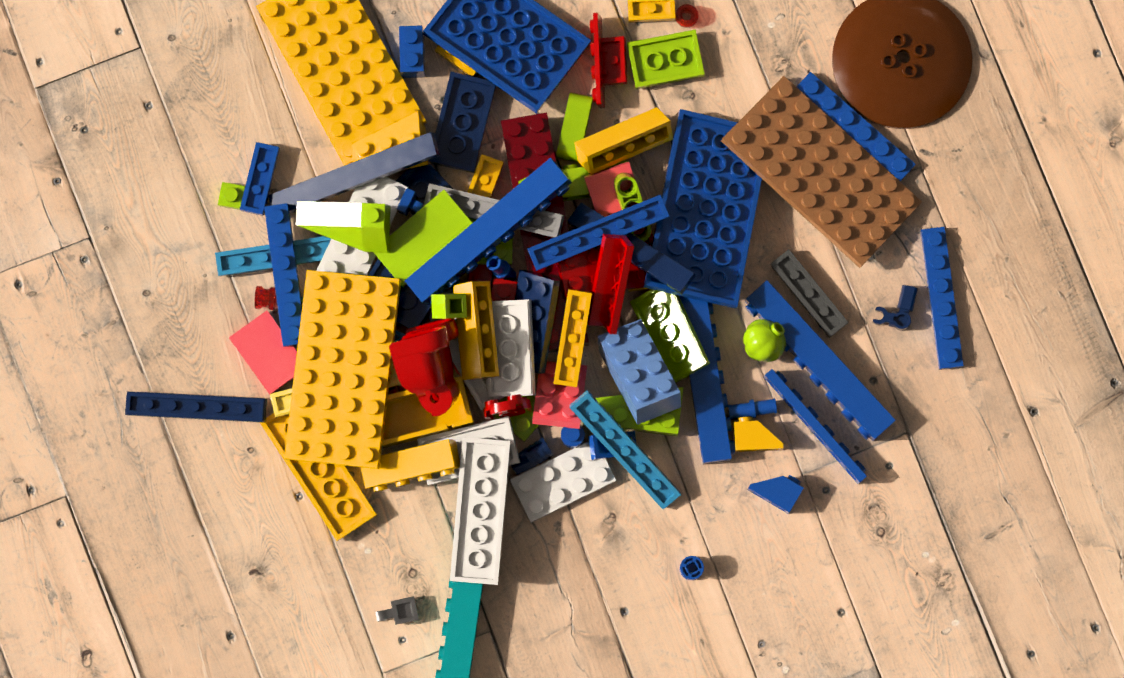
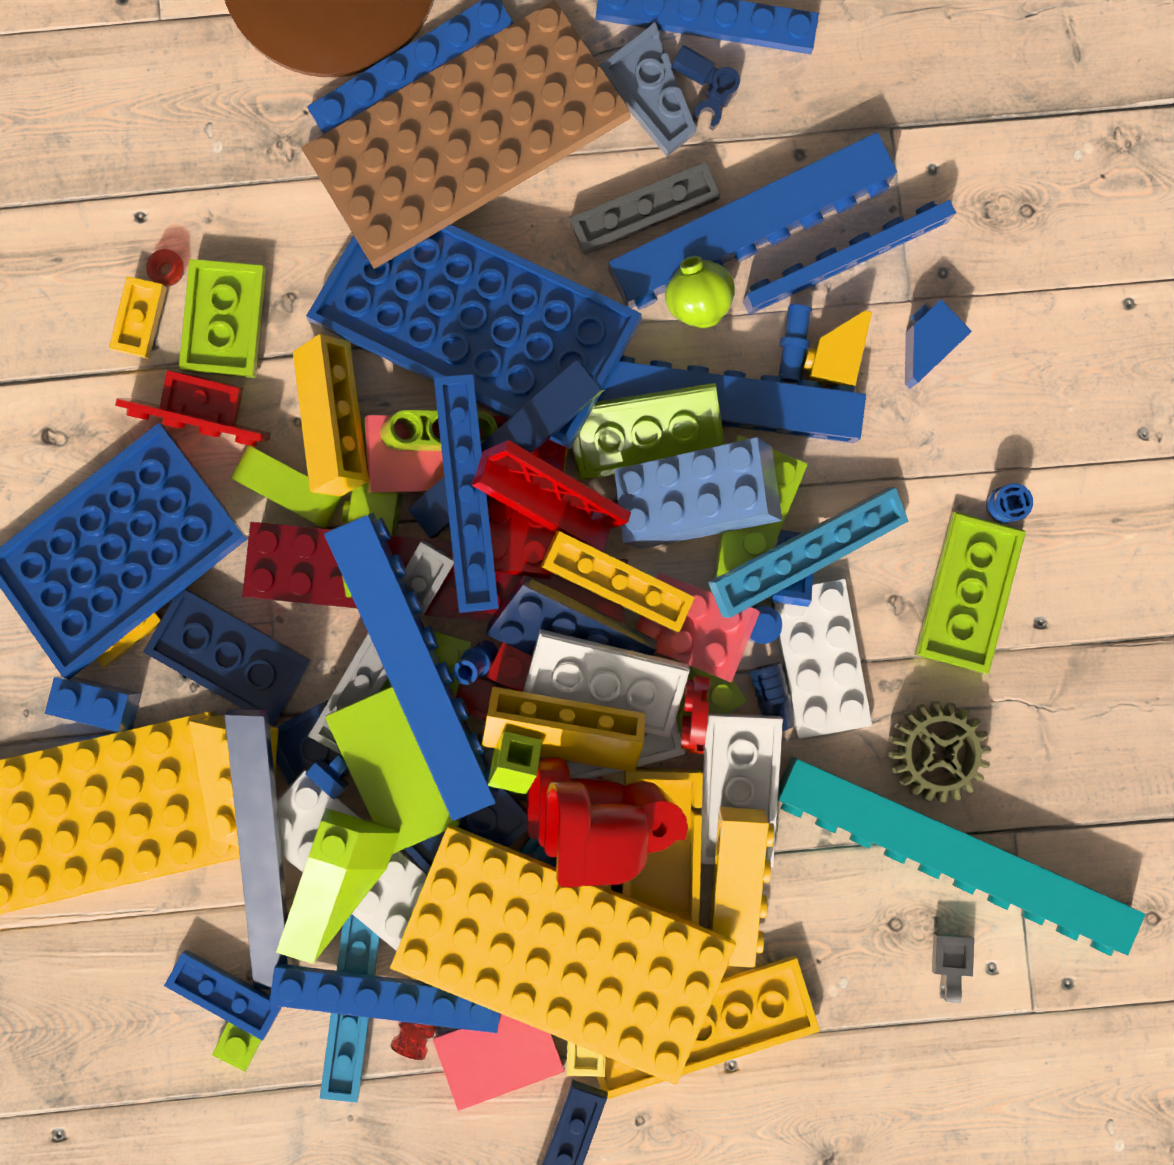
camera: 85 degrees left, 5 degrees up
(480, 511) = (844, 801): white plate -> none
(485, 176) = (323, 644): yellow plate -> none
(542, 578) = (952, 742): none -> olive gear
(630, 561) = (970, 592): none -> lime tile
(884, 275) = (649, 89): none -> sand blue wing

